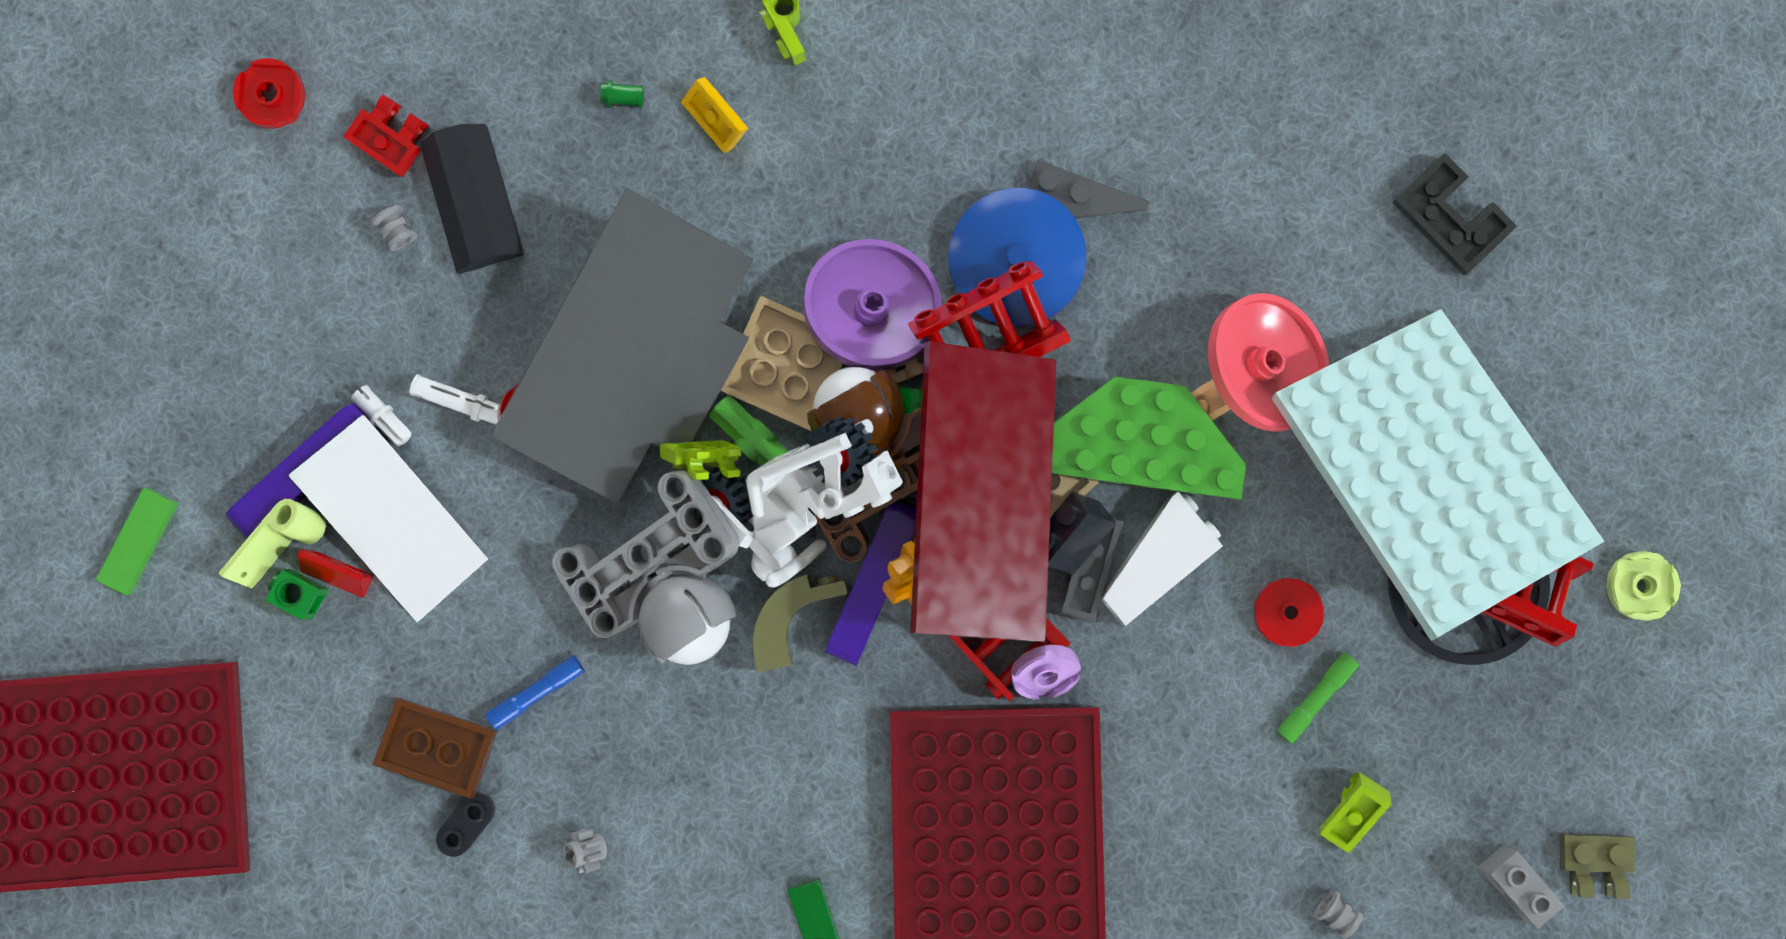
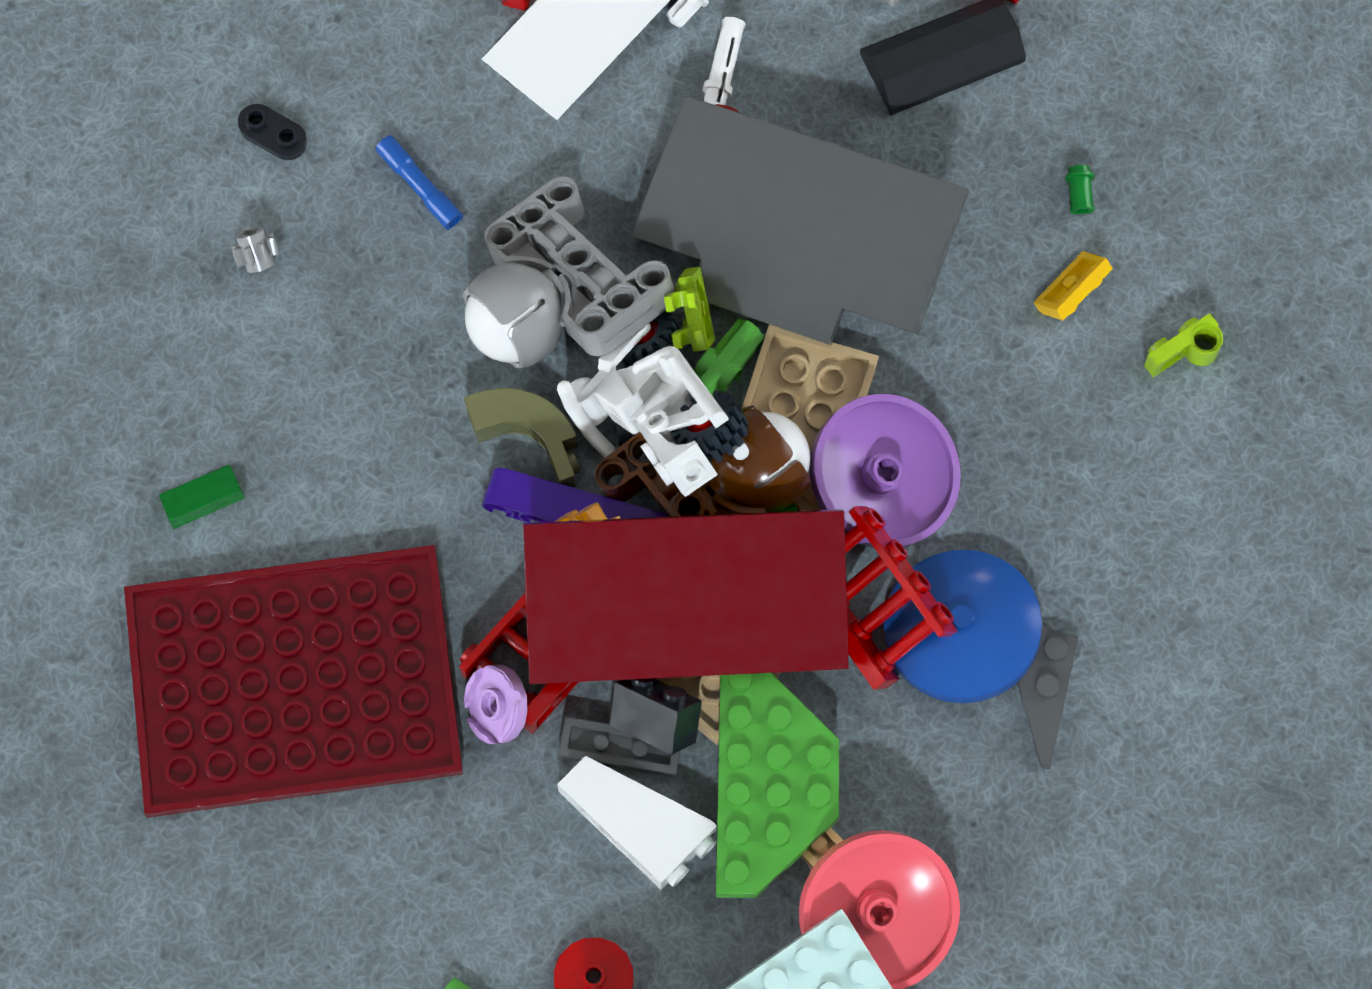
camera: 80 degrees right, 15 degrees down
(435, 747) = (351, 90): reddish brown plate -> none

